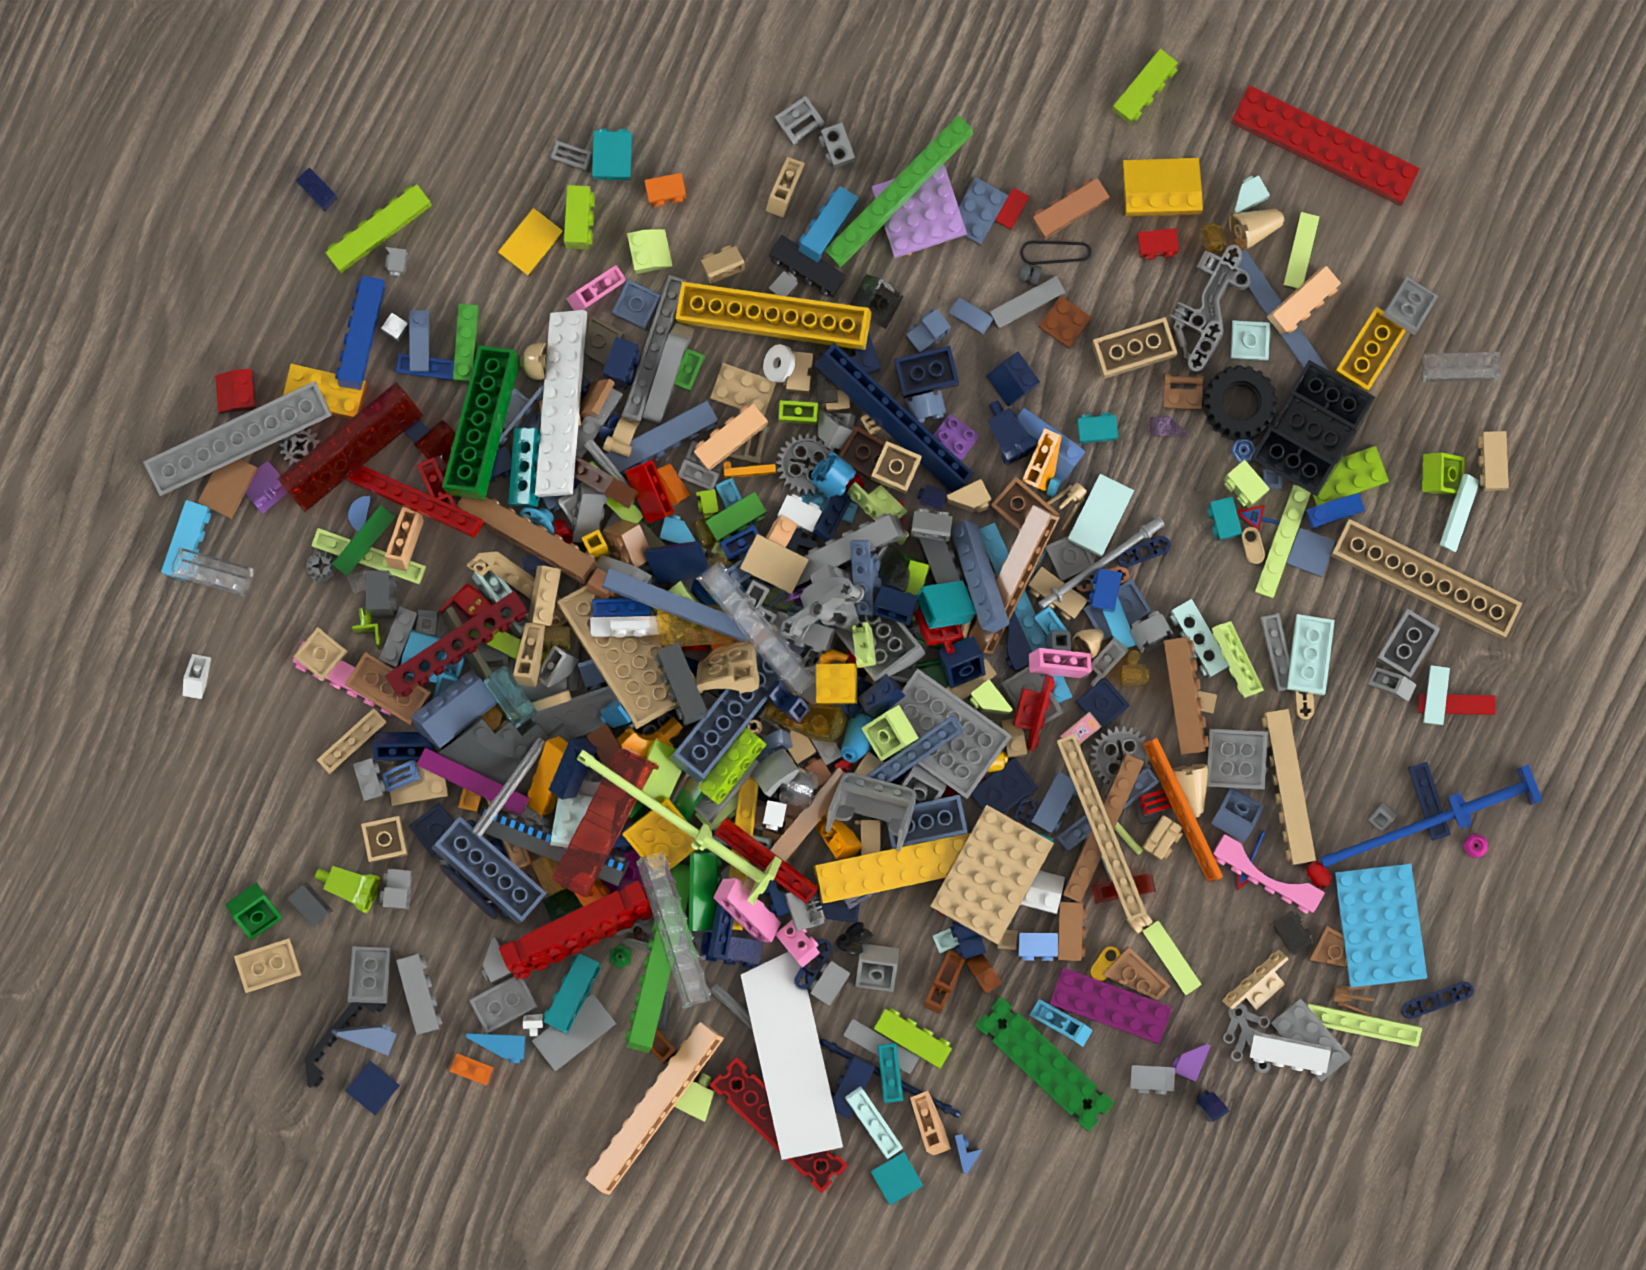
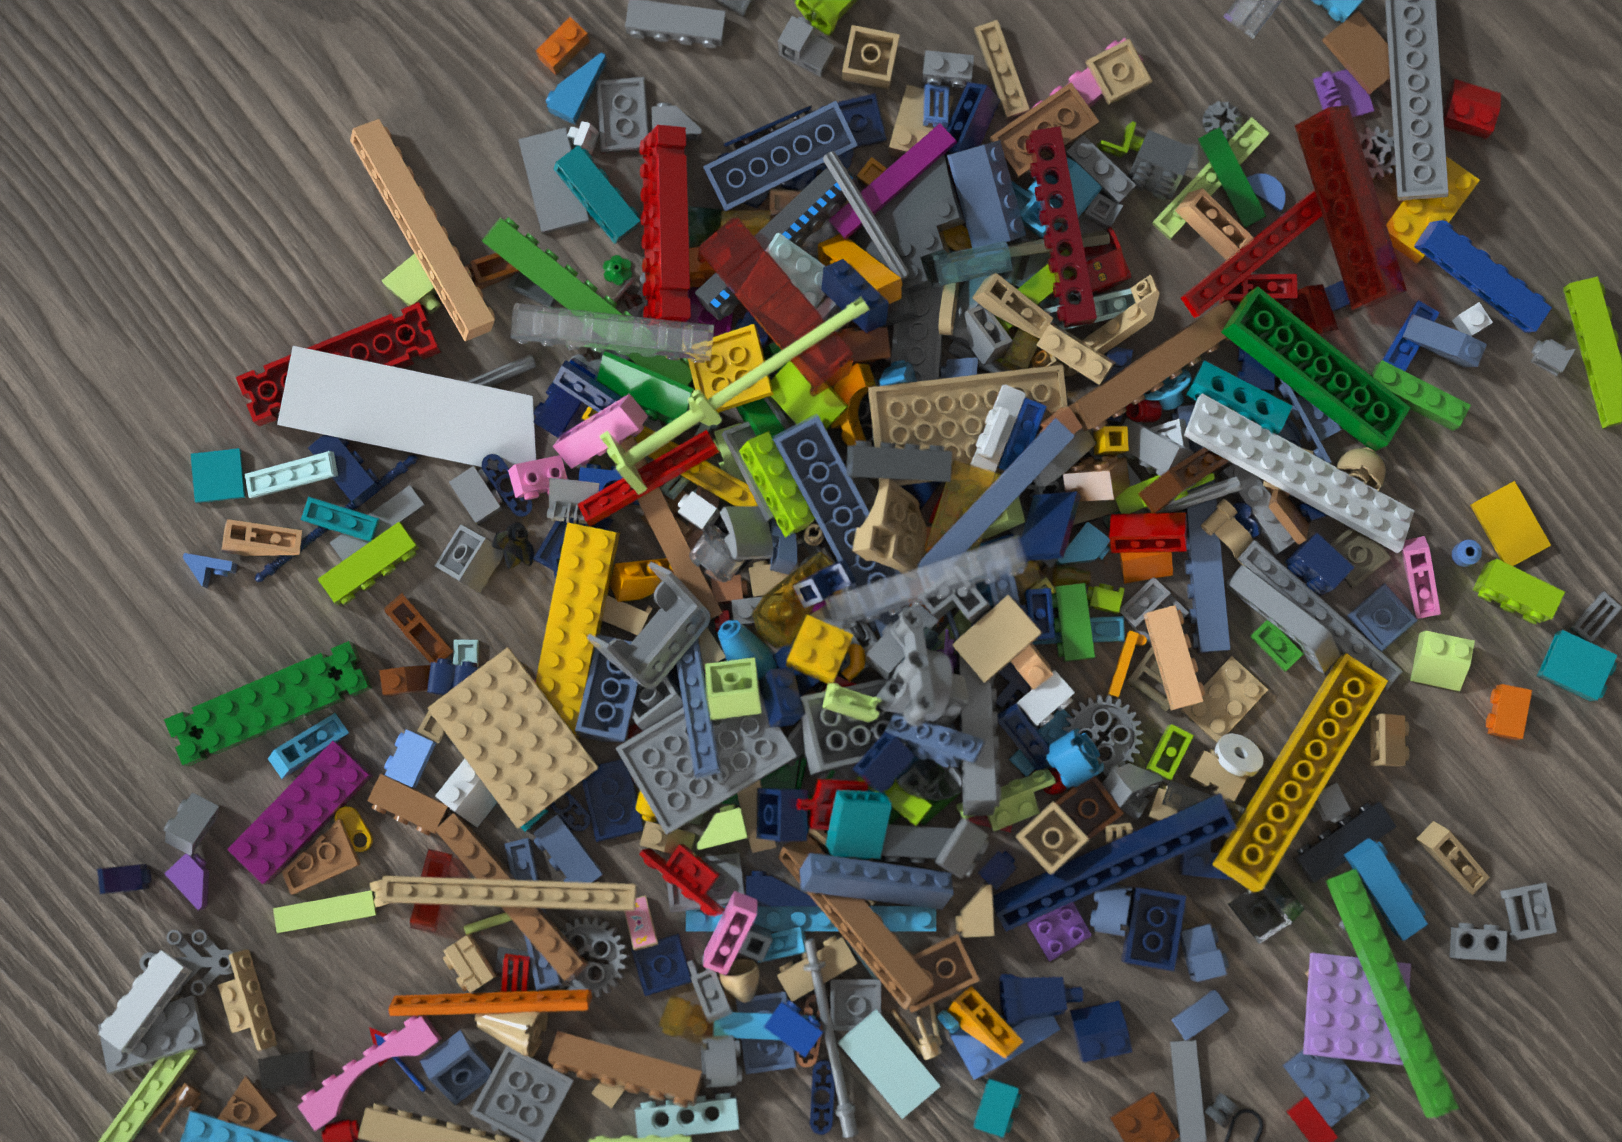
camera: 120 degrees right, 0 degrees up
(568, 269) = (1459, 553): none -> medium blue brick

